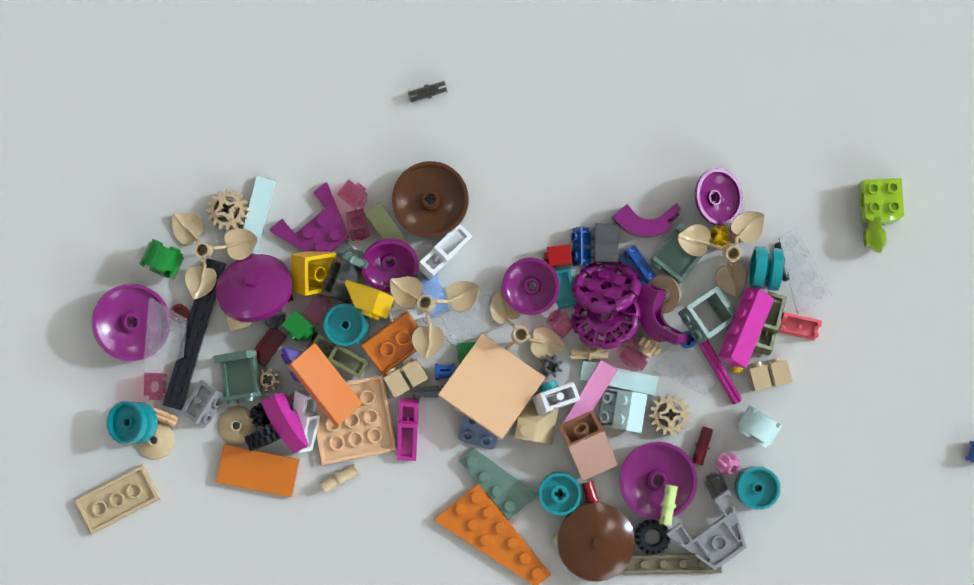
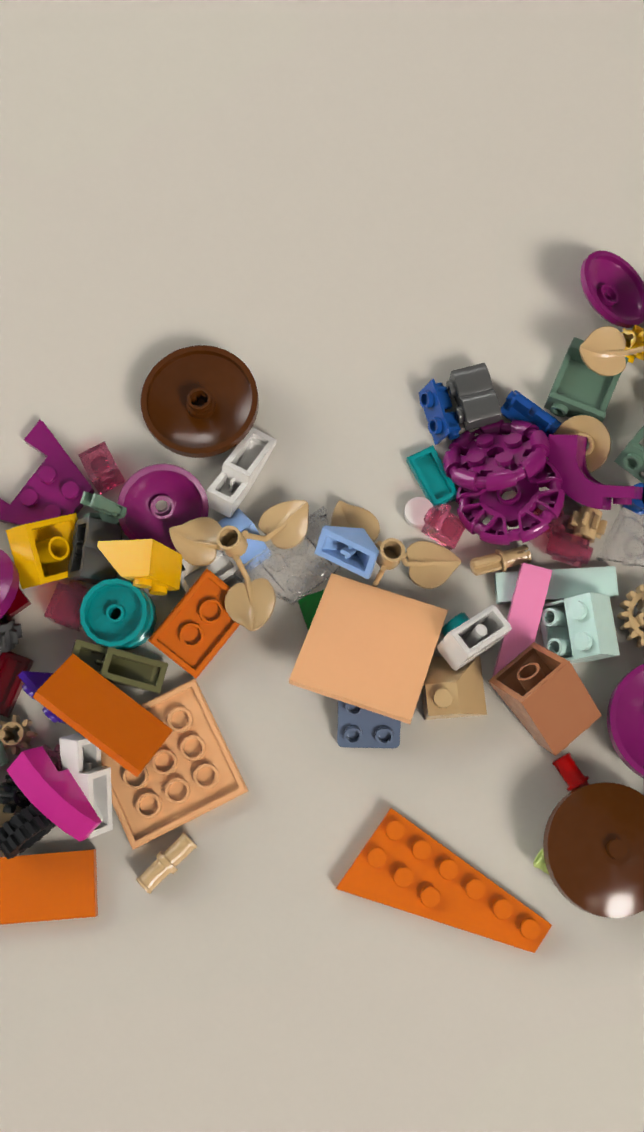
camera: 15 degrees left, 10 degrees down
(299, 327) = (43, 637): green brick -> none
(353, 194) = (83, 425): clear pink brick -> none
(383, 223) = (134, 448): olive slope -> none
(397, 382) = (242, 661): tan piece -> none
(407, 429) = (256, 753): dark pink slope -> none
(427, 91) = (158, 262): clear smoke pin -> none
(427, 392) = (270, 686): dark grey axle -> none
(444, 371) = (288, 646): blue bush -> none
(496, 323) = (348, 548): none -> light blue slope
(501, 487) = (427, 802): sand green wing -> none
(517, 289) = (378, 462): magenta dish -> none
(545, 363) = (446, 585): dark grey gear -> none
(558, 255) = (411, 432): red brick -> none
(559, 505) = (543, 782): teal wheel -> none
(645, 228) = (525, 361): magenta arch -> none

